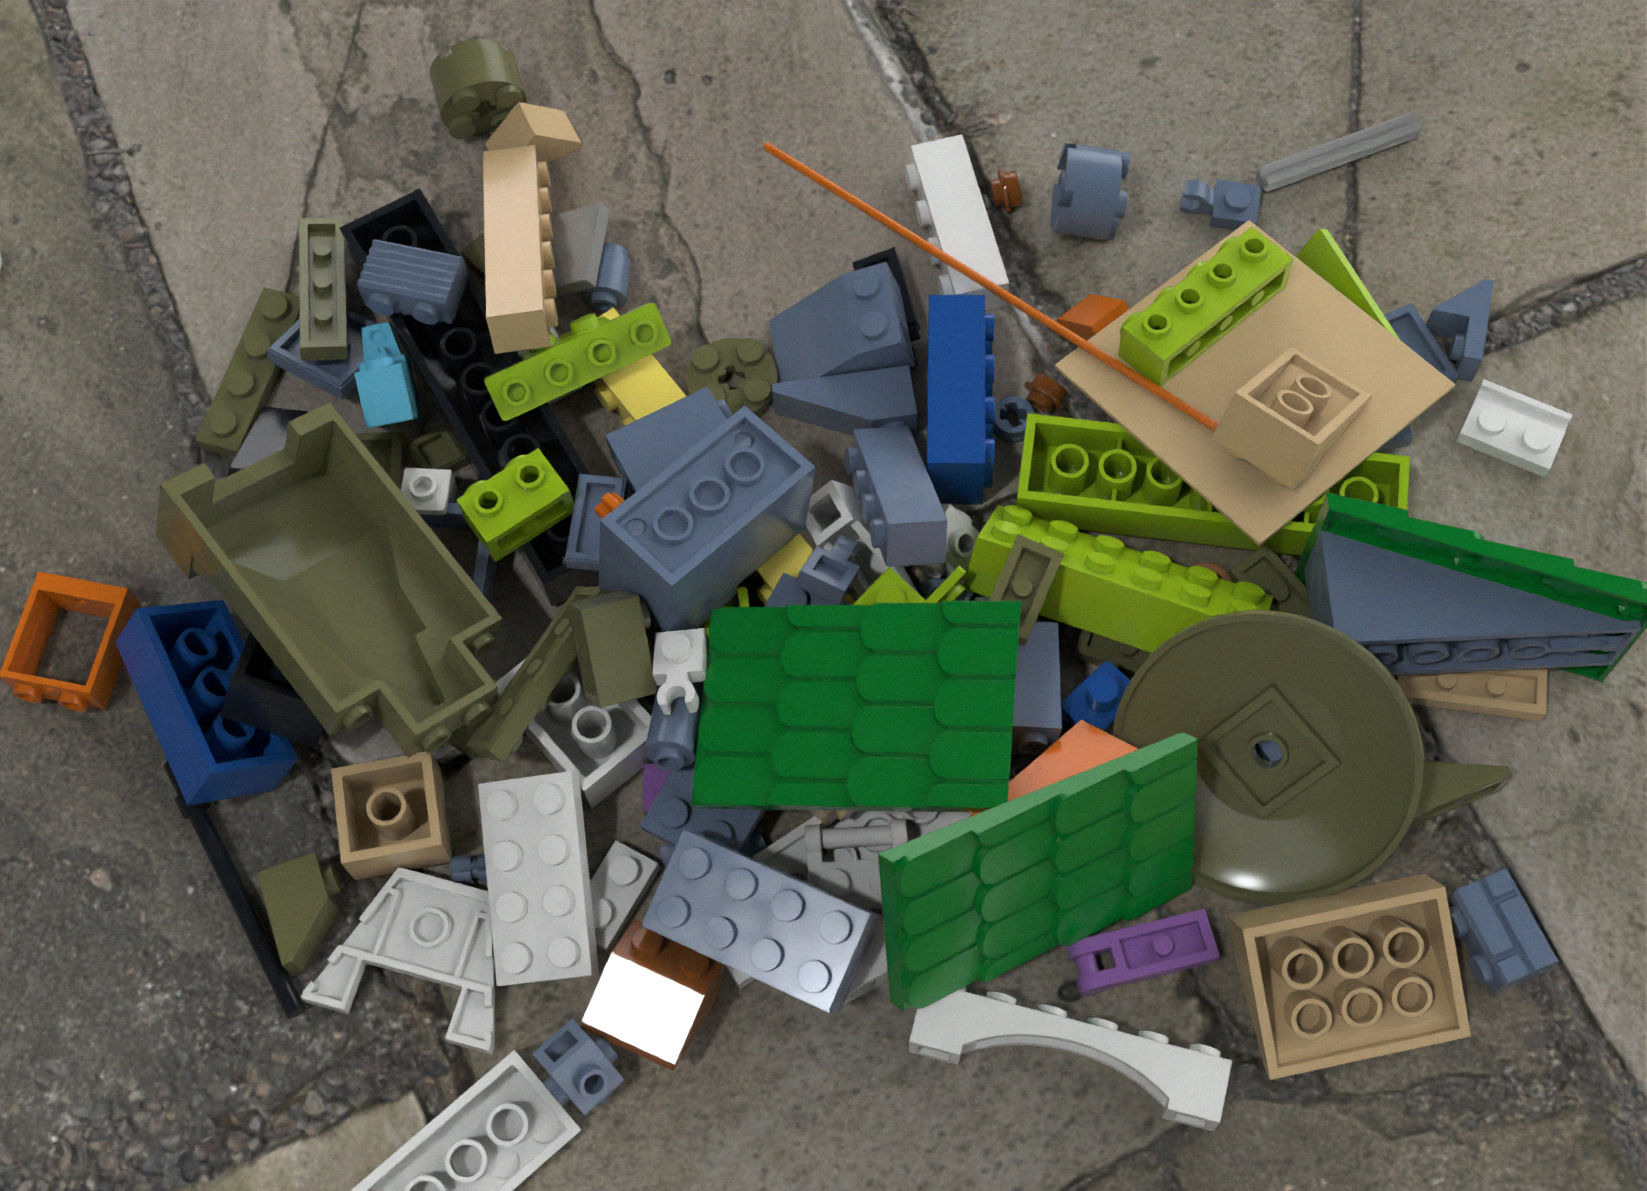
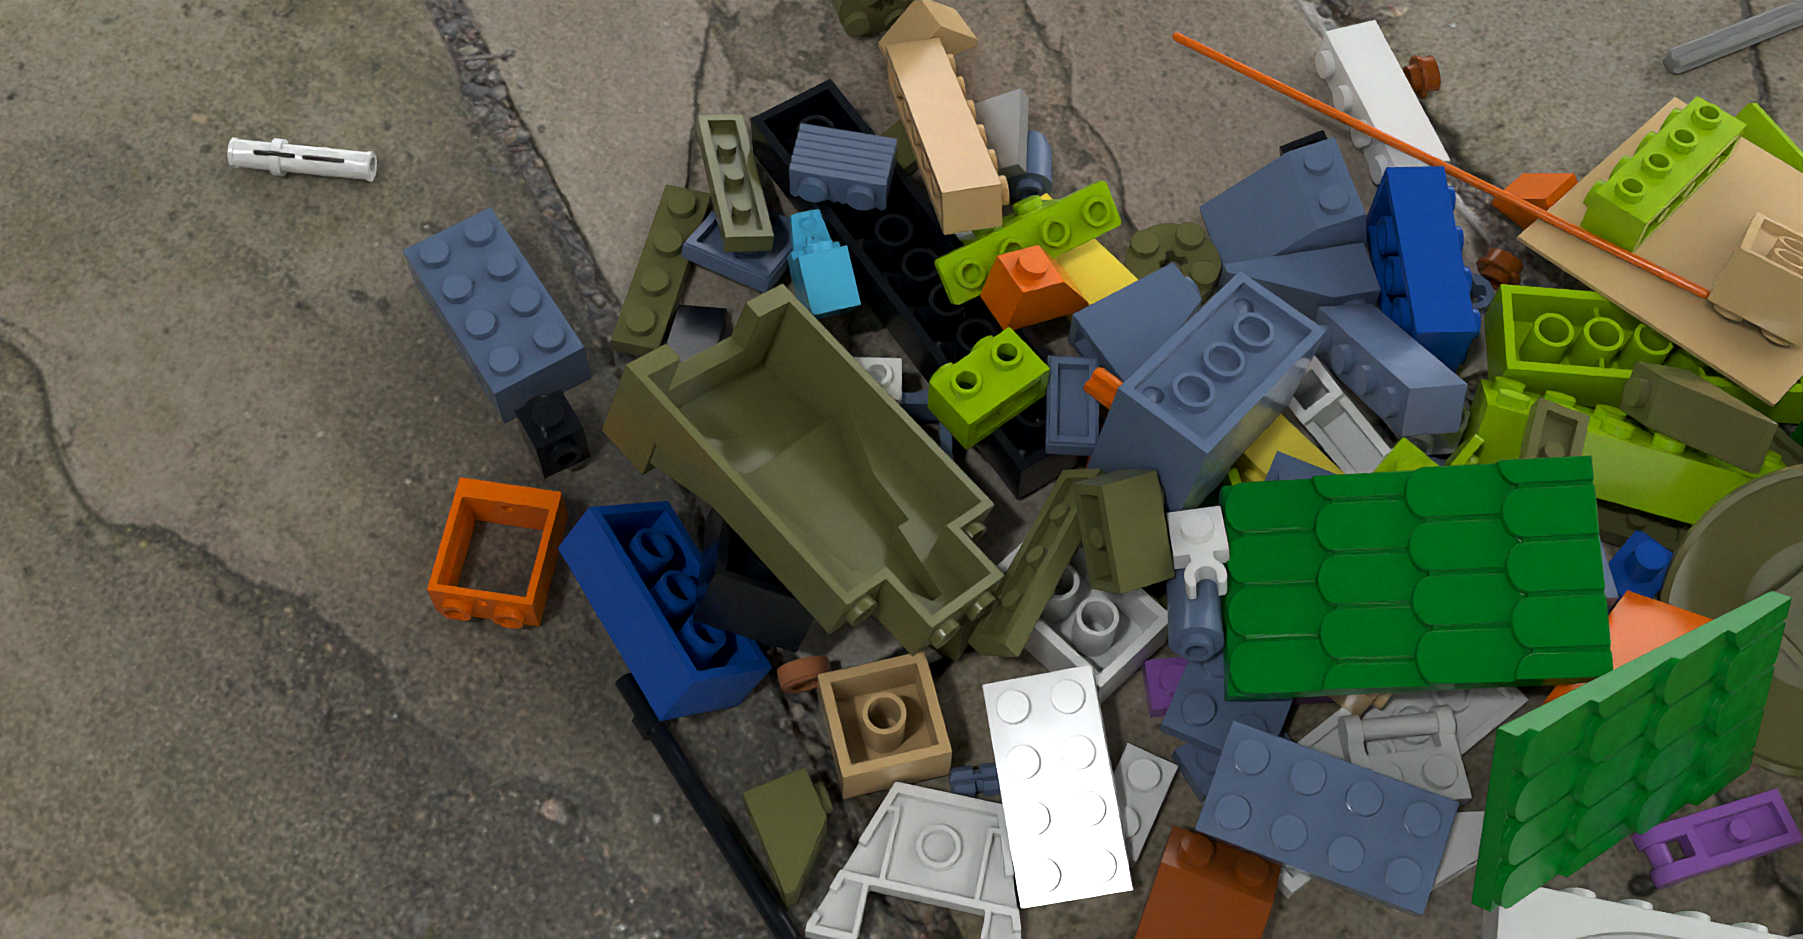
camera: 10 degrees left, 5 degrees down
(91, 414) = (497, 313): none -> sand blue brick
(129, 529) = (552, 433): none -> black brick
(320, 764) = (802, 674): none -> nougat tile
(437, 450) = (872, 340): olive tile -> none
(575, 407) = (1030, 289): none -> orange slope
(830, 573) = (1330, 448): sand blue plate -> none
(1089, 191) = (1512, 72): sand blue brick -> none
(1173, 550) = (1698, 414): none -> olive slope
(1228, 204) = (1641, 84): sand blue plate -> none

